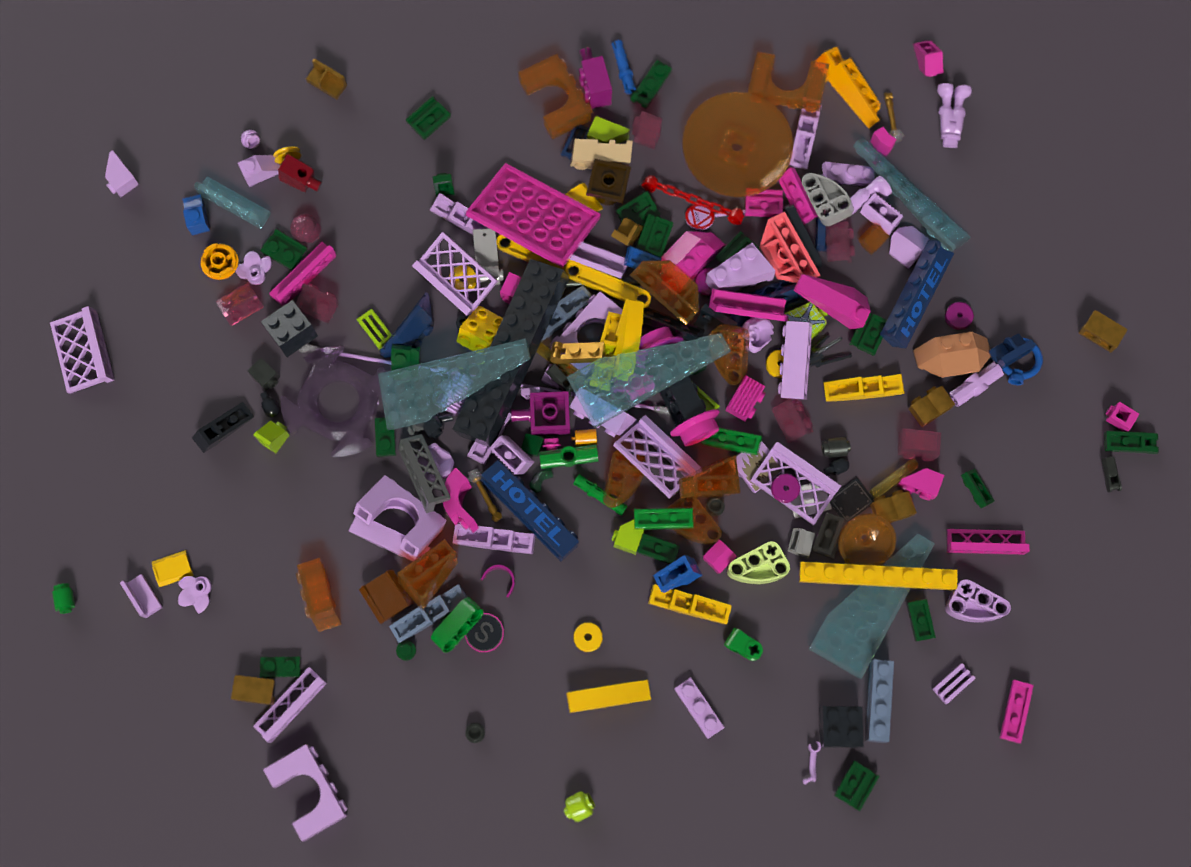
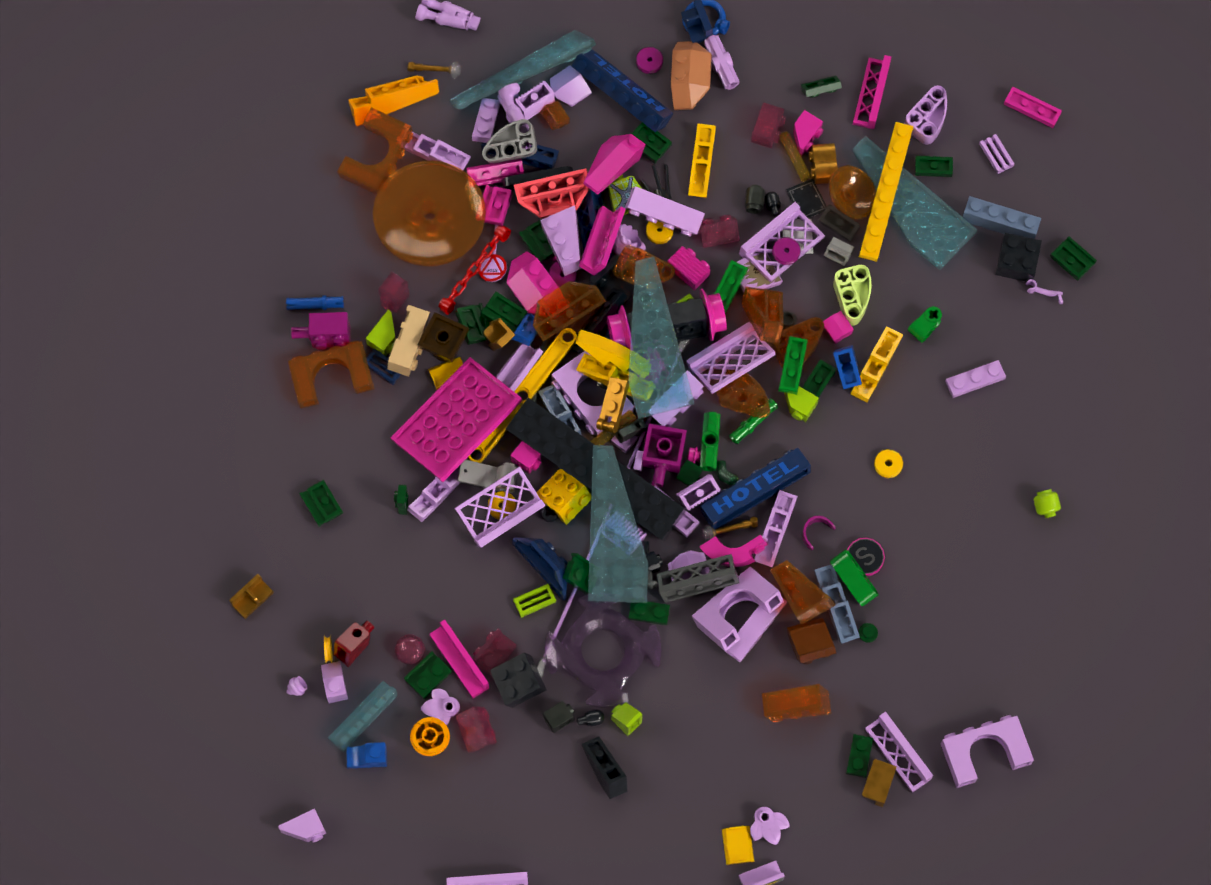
camera: 75 degrees left, 5 degrees down
(475, 733) = (959, 584): pearl dark grey plate -> none
(585, 437) = (694, 422): light orange piece -> none
(608, 696) = (949, 455): yellow slope -> none
(651, 84) = (340, 281): dark green plate -> none
(839, 242) = (553, 146): clear pink bracket -> none
(883, 141) = (459, 81): dark pink piece -> none
(929, 58) = (382, 19): dark pink slope -> none
(931, 406) = (734, 105): pearl gold brick -> none

